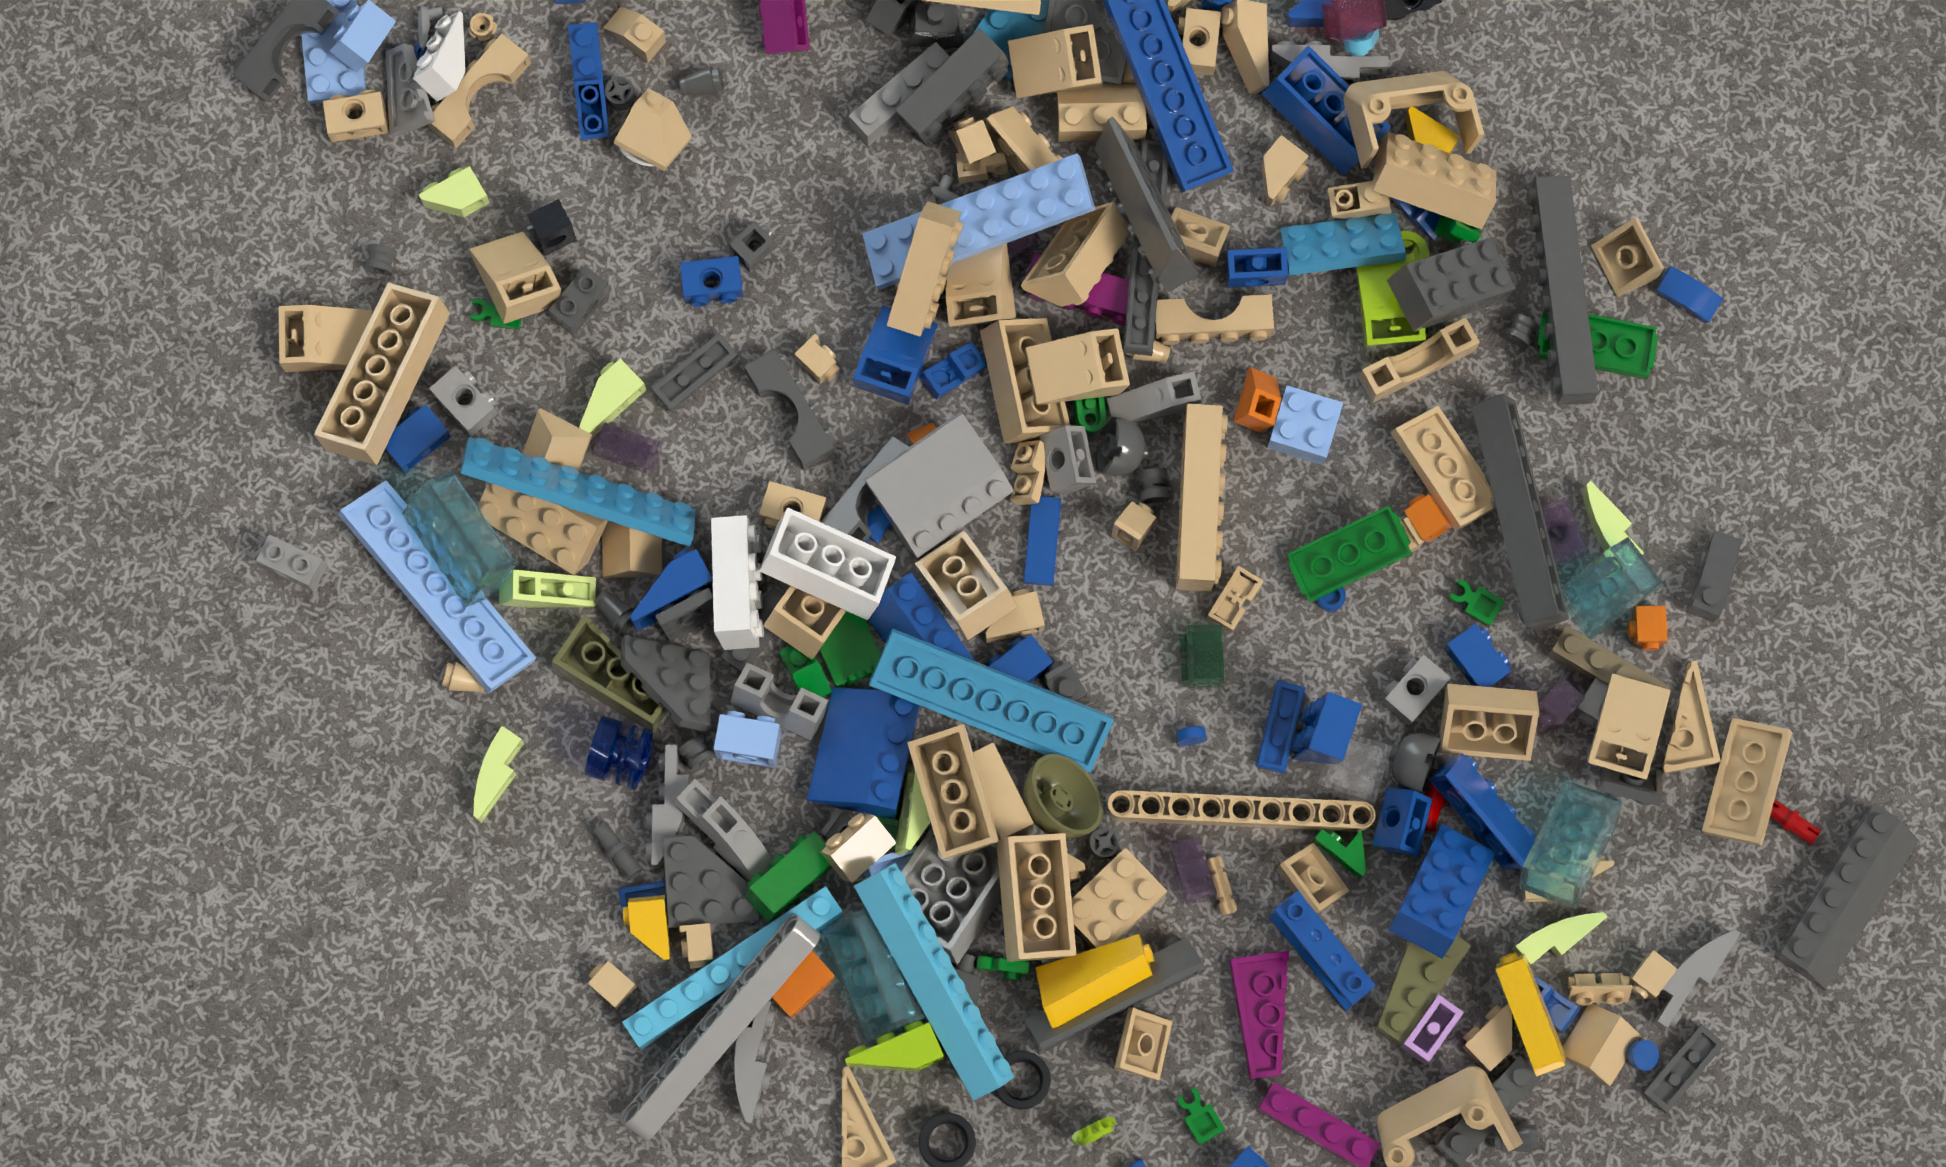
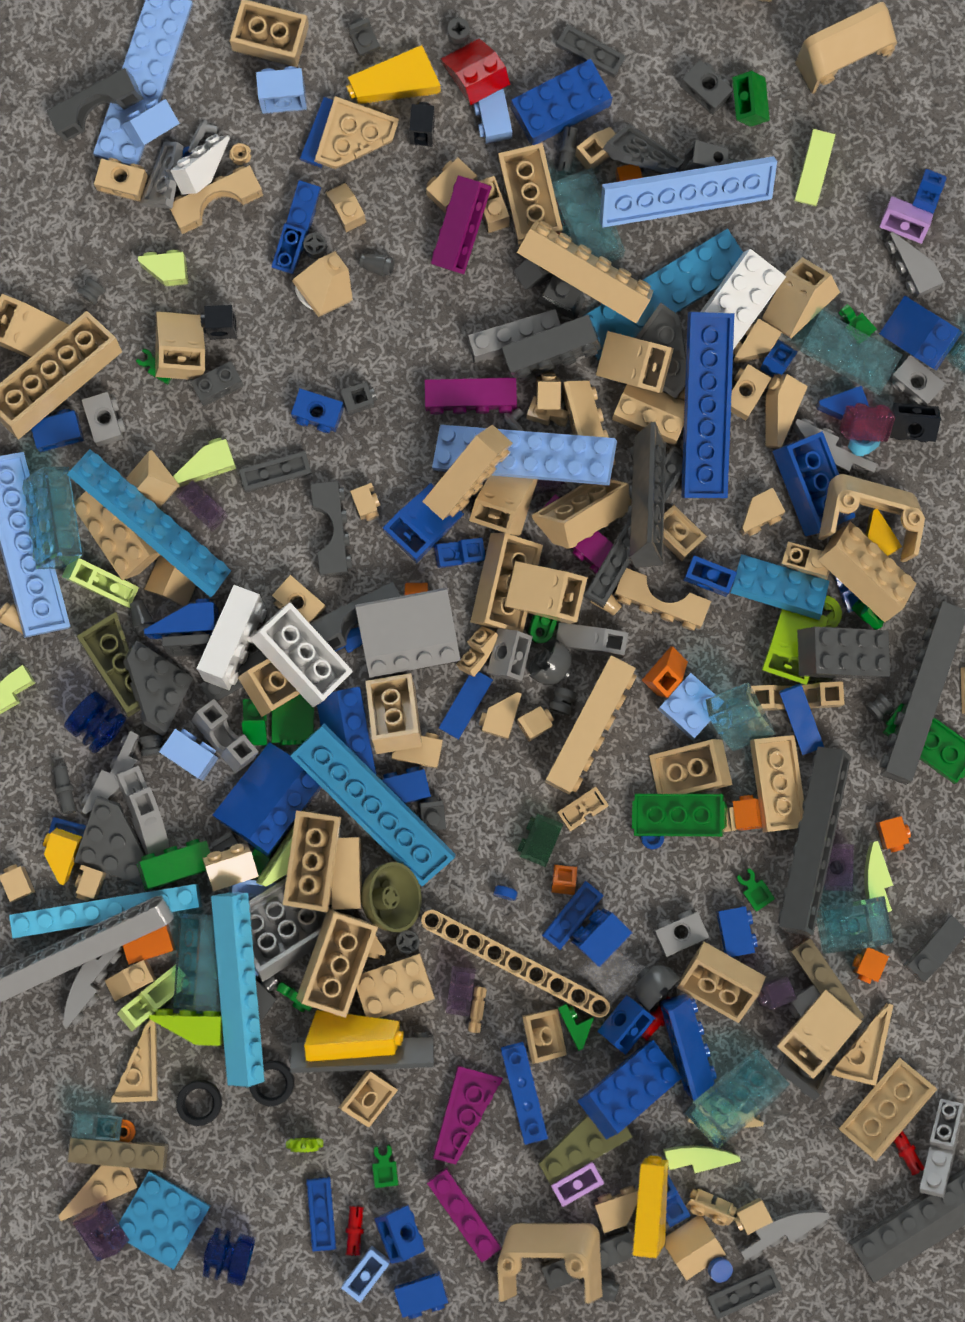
camera: 25 degrees right, 5 degrees up
(799, 1036) = (130, 979): none -> tan slope
(833, 1049) = (149, 1000): none -> yellowish green slope
(881, 184) = (470, 394): none -> magenta brick
(1090, 536) = (500, 717): none -> tan slope
(1251, 691) = (564, 879): none -> orange slope
(1338, 495) = (691, 768): none -> tan slope
(1367, 409) = (739, 717): none -> clear light blue slope
(1438, 382) = (801, 718): none -> blue tile
(1604, 466) = (893, 834): none -> orange brick
(1829, 797) = (942, 1148): none -> light grey slope

